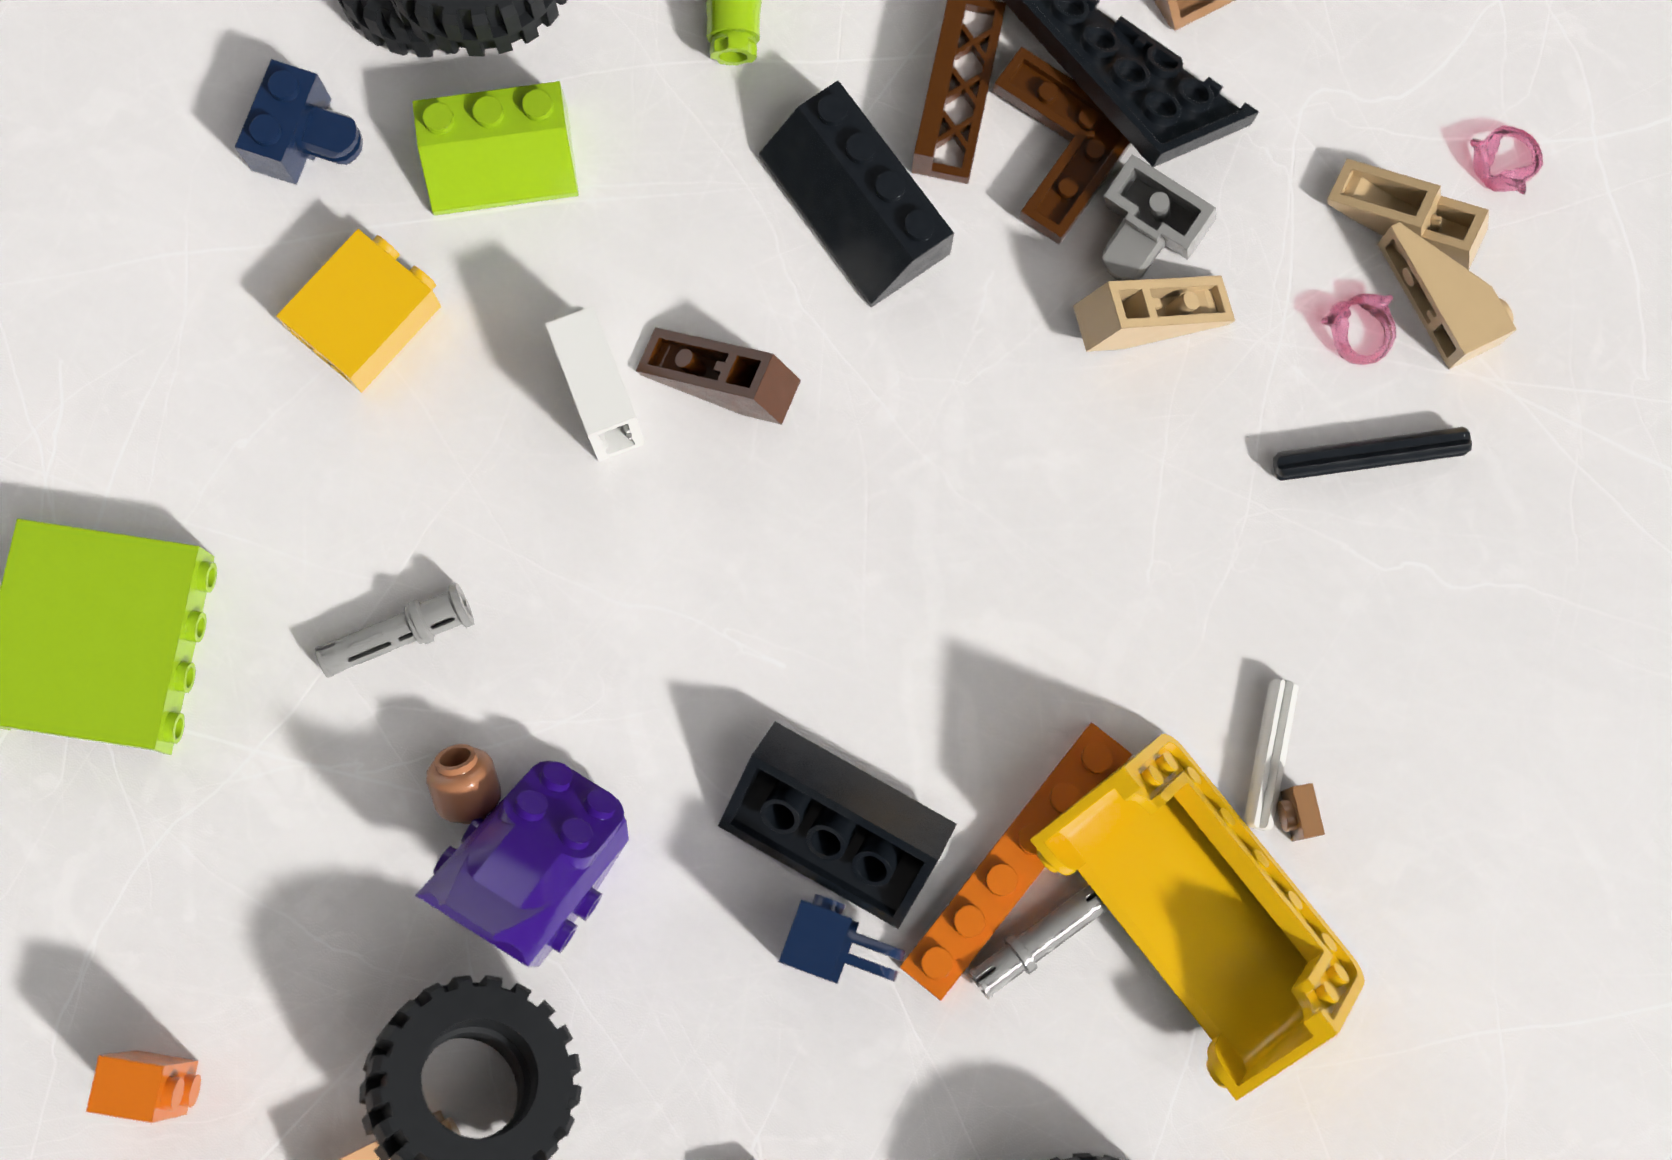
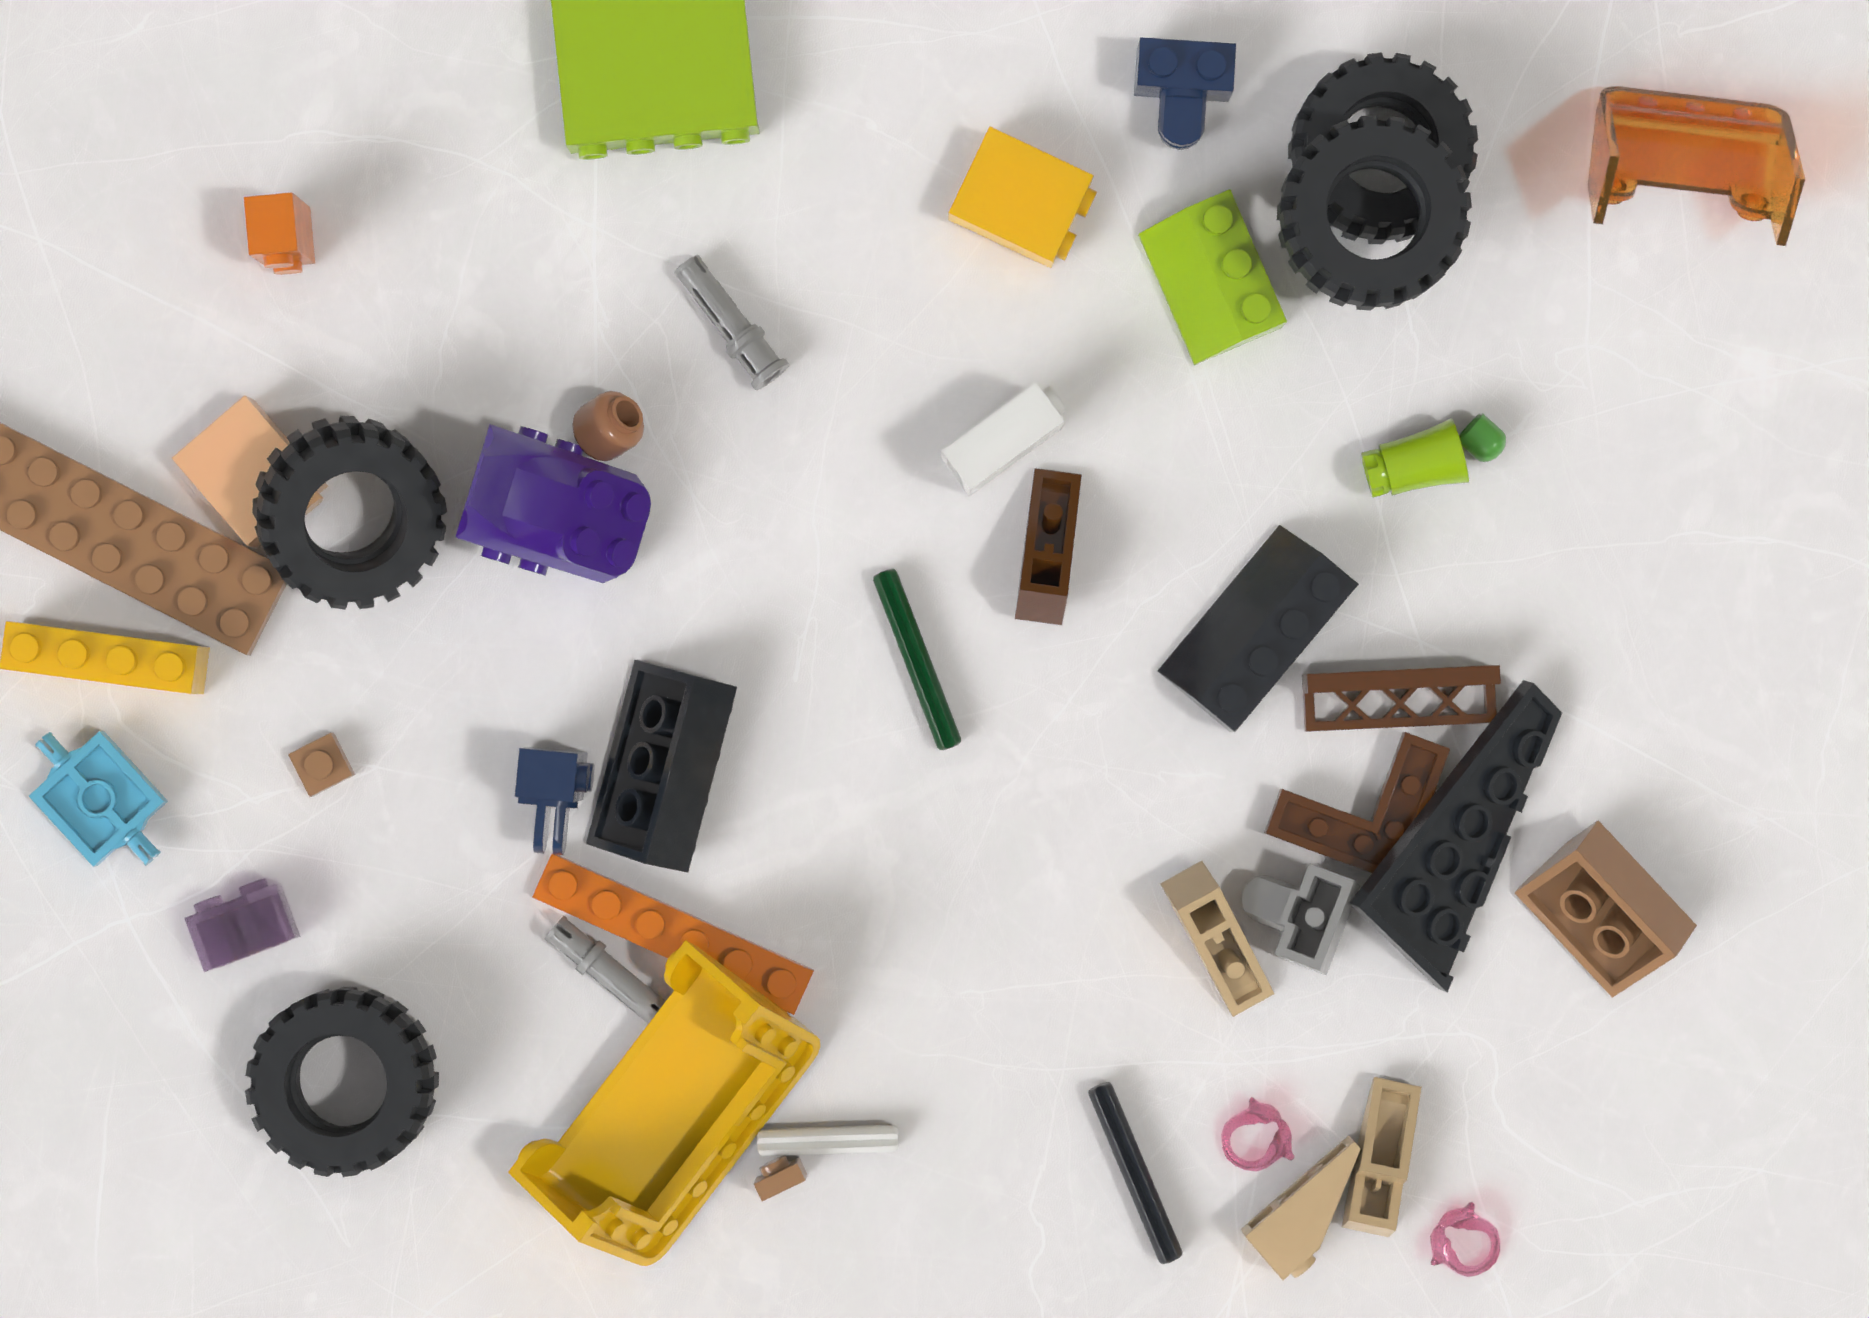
camera: 75 degrees right, 10 degrees up
(796, 535) = (917, 659): none -> dark green axle

